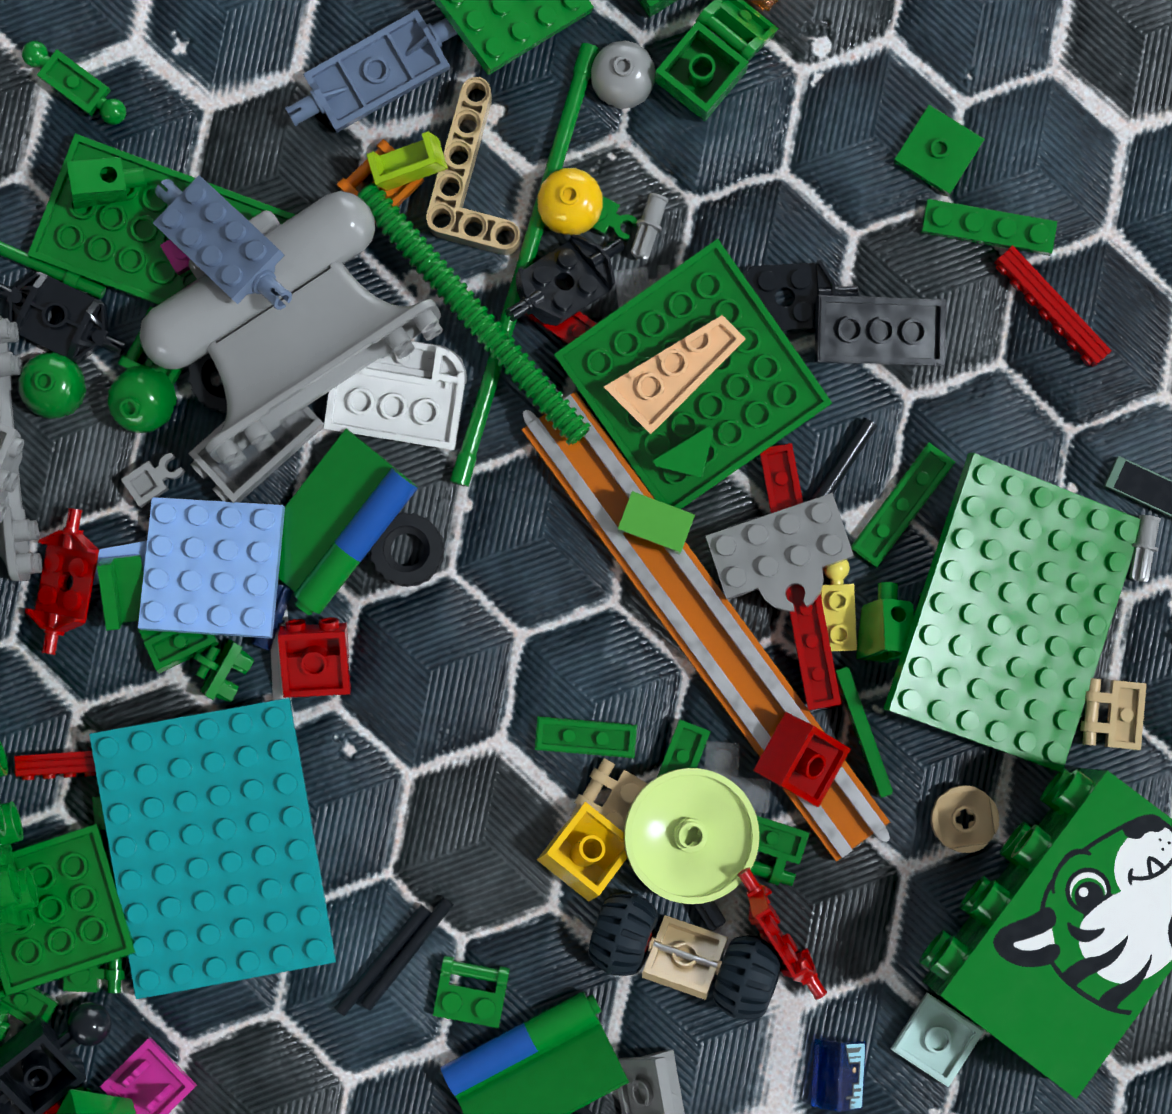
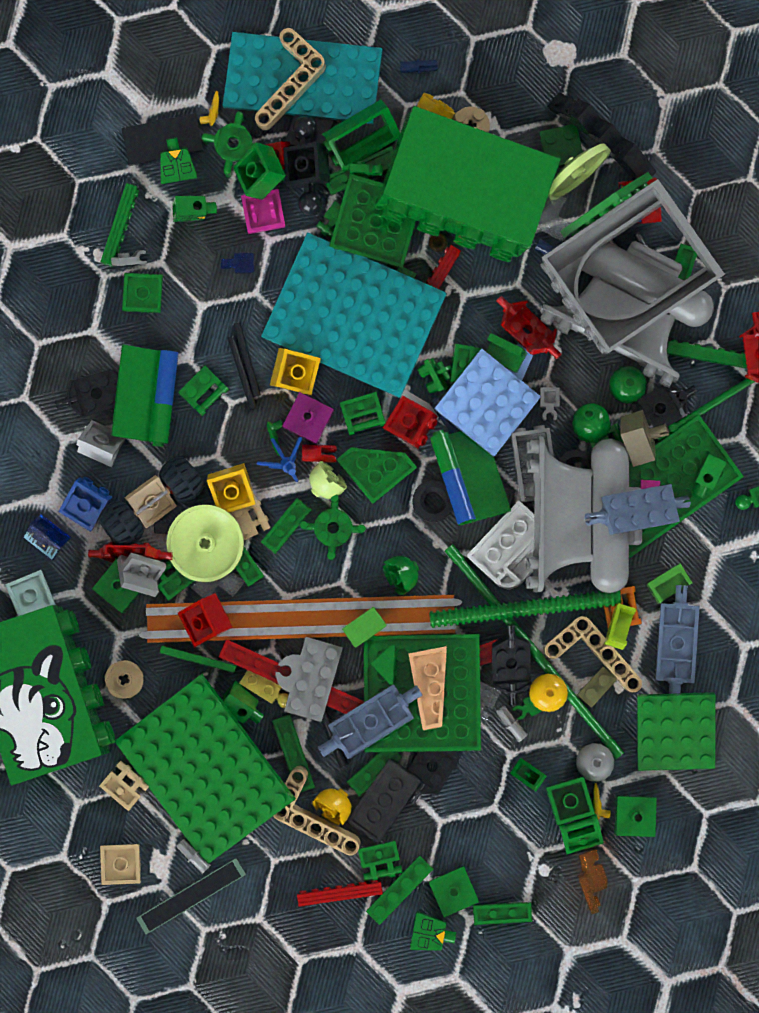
camera: 125 degrees right, 0 degrees up
(26, 797) = (438, 243): none -> dark brown plate
(114, 311) = (640, 438): none -> dark tan brick
(245, 1065) = (242, 263): none -> clear blue plate
(302, 143) = (665, 584): none -> bright green panel
(343, 747) = (361, 407): none -> green plate
(353, 877) = (295, 371): none -> yellow slope
(409, 811) = (308, 418): none -> magenta brick
(418, 662) = (376, 470): none -> green plate
(453, 769) = (312, 453): none -> red hinge
(468, 844) = (272, 431): none -> green bar
(484, 721) = (325, 482): none -> yellowish green cylinder
(495, 796) = (286, 463): none -> blue plant
(515, 142) = (597, 687): none -> olive plate
(522, 661) = (336, 539): none -> green plate
(541, 524) = (402, 573): none -> green cylinder
(679, 31) = (597, 805): none -> yellow bar
(705, 152) = (528, 774): none -> green slope
(751, 1052) = (85, 503): none -> blue plate
(784, 421) = (370, 721): none -> sand blue plate
(801, 899) = (140, 573): none -> light grey bracket
(837, 917) = (110, 589): none -> green brick
(853, 379) = (367, 774): none -> green tile
(921, 63) = (502, 913): none -> green tile
(936, 396) = (334, 805): none -> yellow cylinder
(960, 287) = (378, 855): none -> green plate
(976, 415) = (310, 818): none -> tan beam
(1020, 143) = (430, 933): none -> green torso

